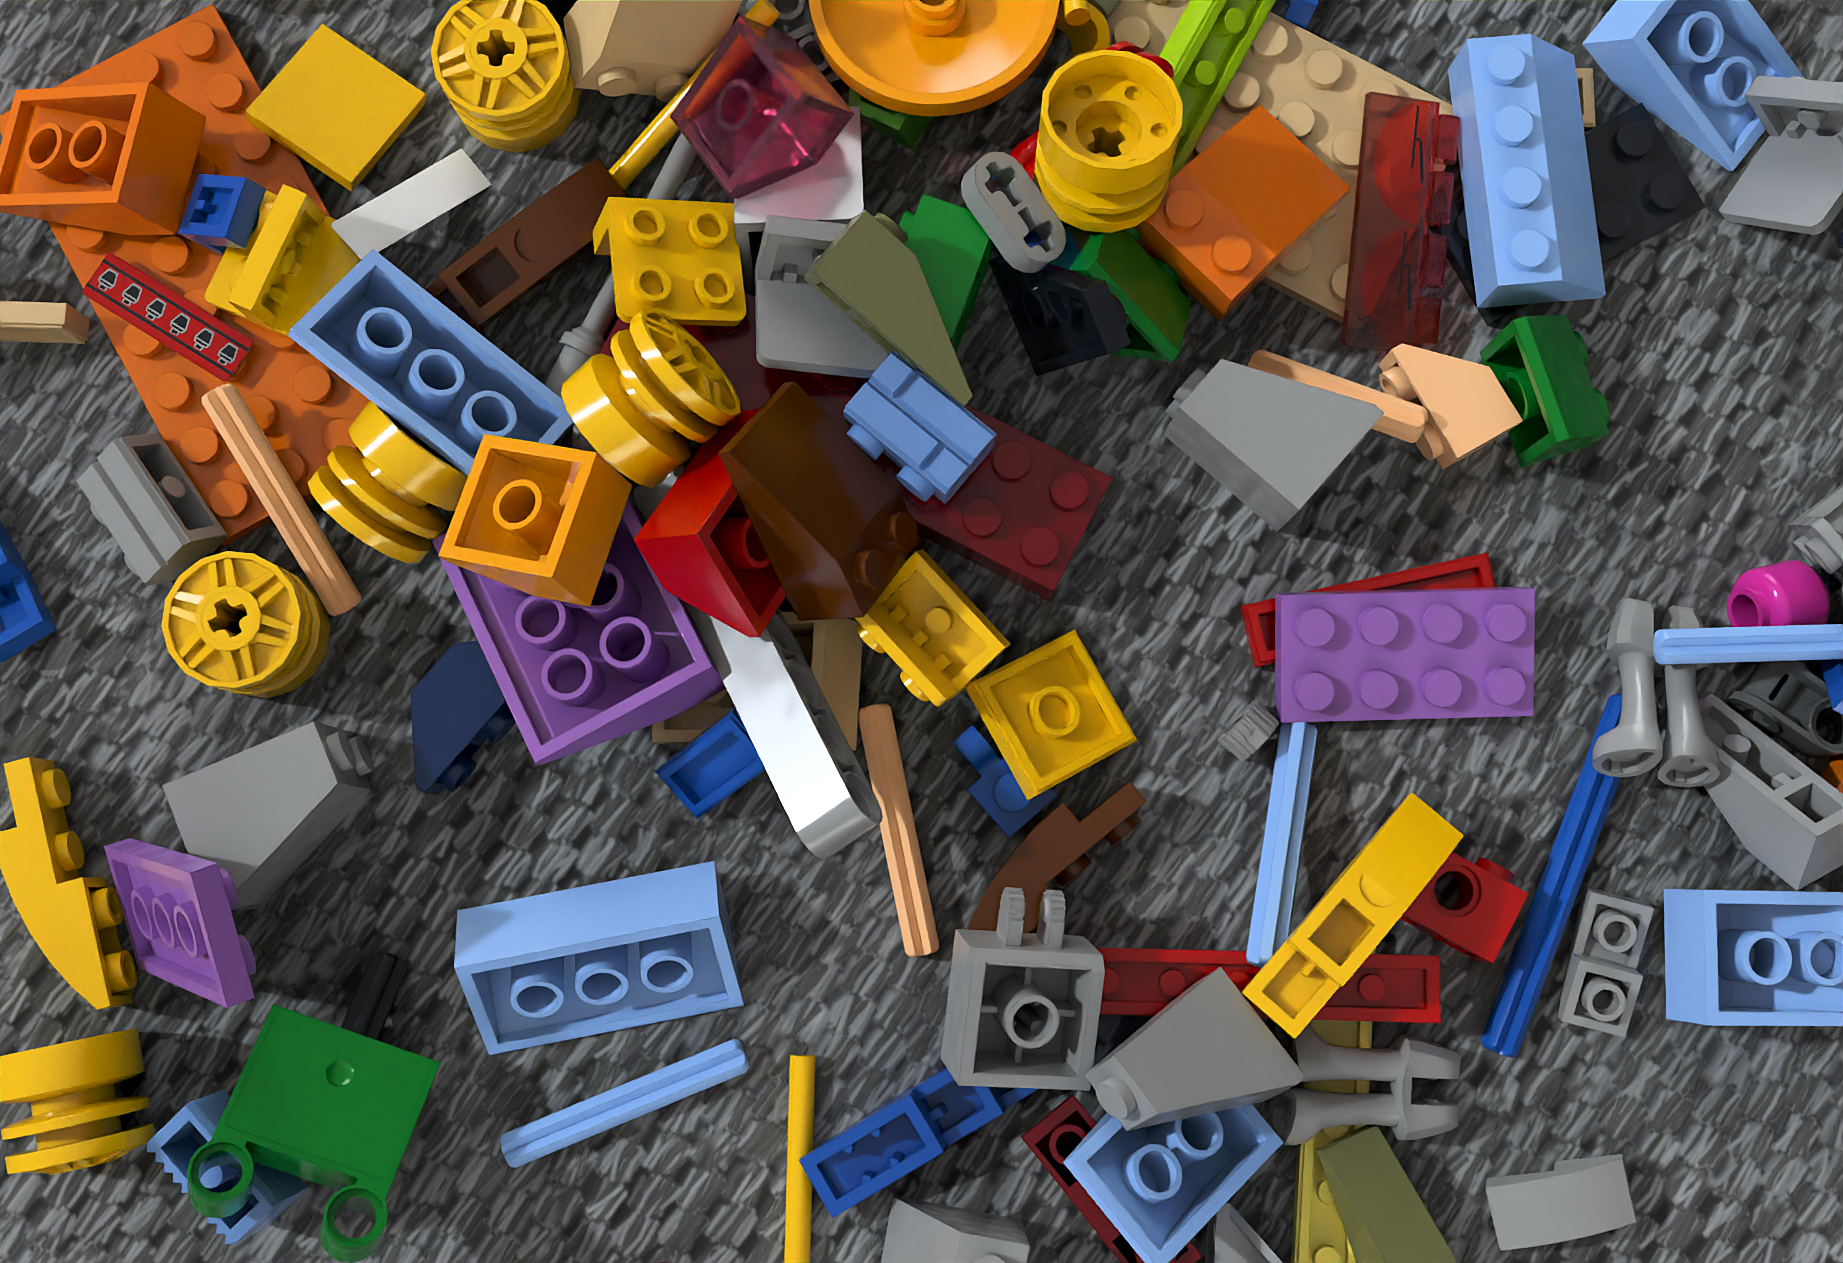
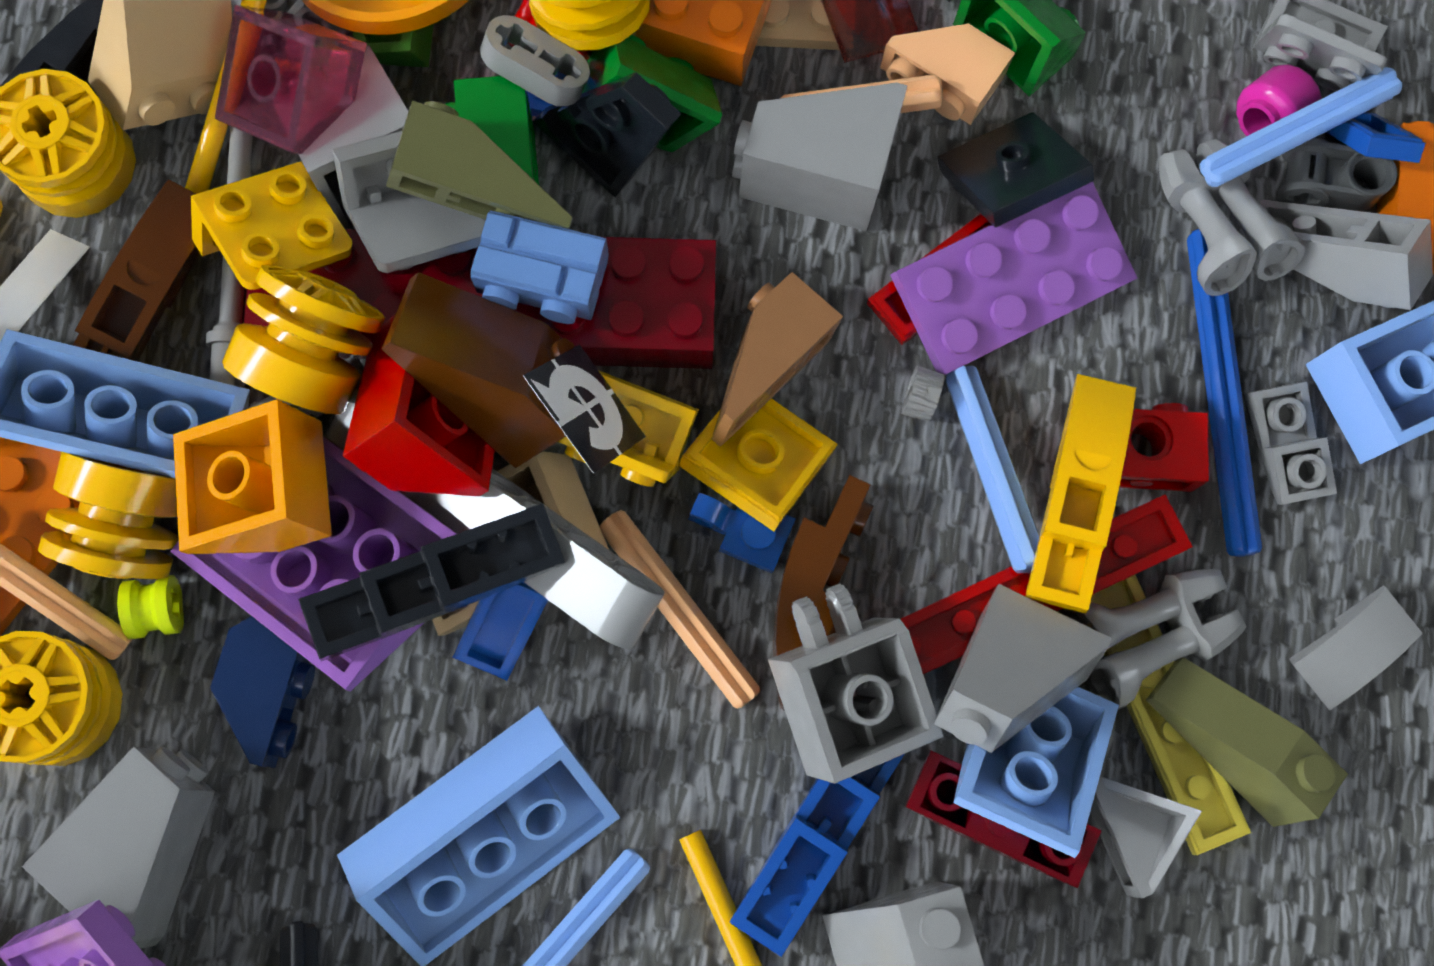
camera: 30 degrees left, 5 degrees down
(389, 584) = (150, 607): none -> neon yellow wheel
(664, 701) = (432, 582): none -> black slope
(894, 596) = (585, 407): none -> sticker
(1124, 608) = (780, 339): none -> medium nougat slope
(1461, 543) = (1015, 169): none -> black plate

